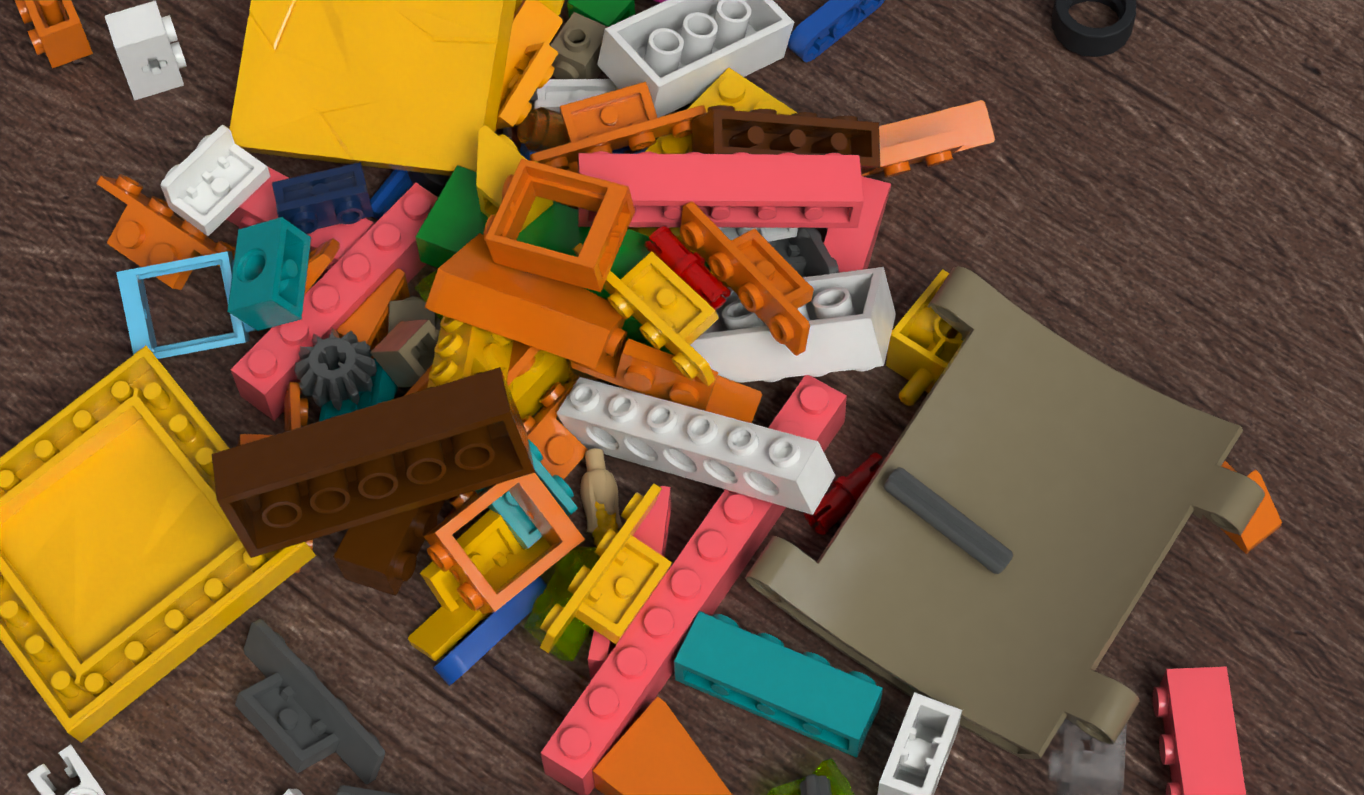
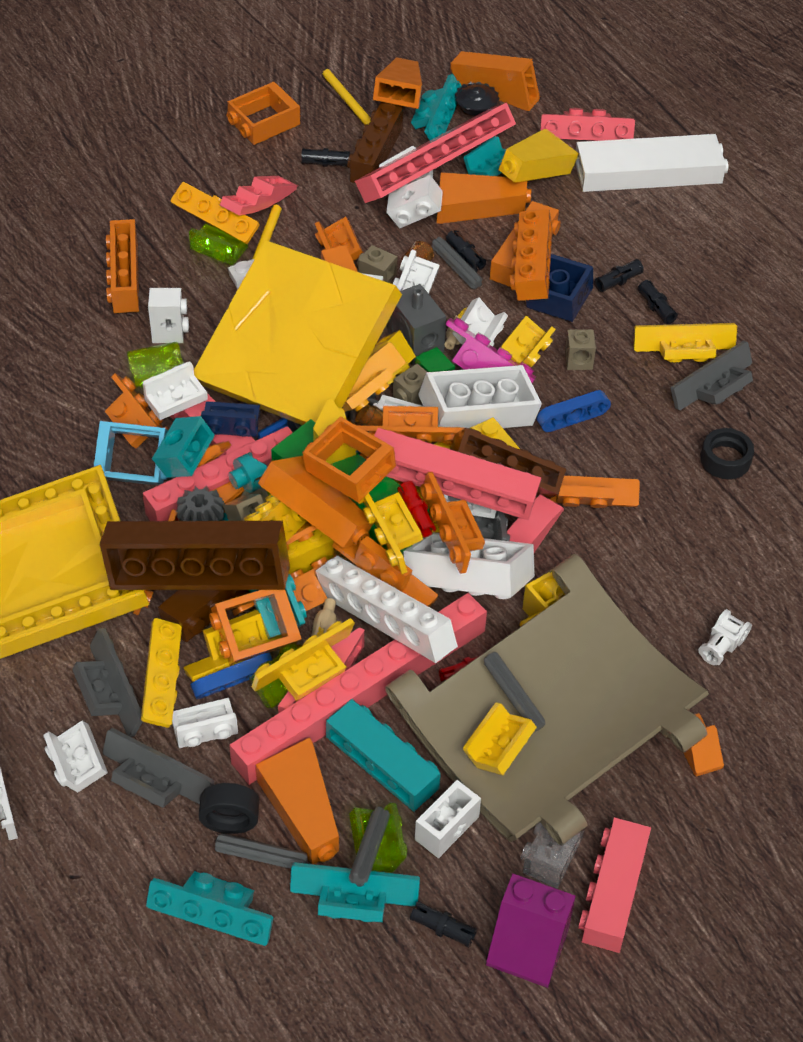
camera: 15 degrees right, 10 degrees down
(157, 138) = (153, 361): none -> clear neon green bracket
(385, 668) = (161, 673): none -> yellow bracket
(390, 285) = (245, 472): none -> teal piece
(479, 723) = (204, 723): none -> white bracket
(955, 607) = (498, 739): none -> yellow bracket
(1206, 312) = (725, 637): none -> white connector

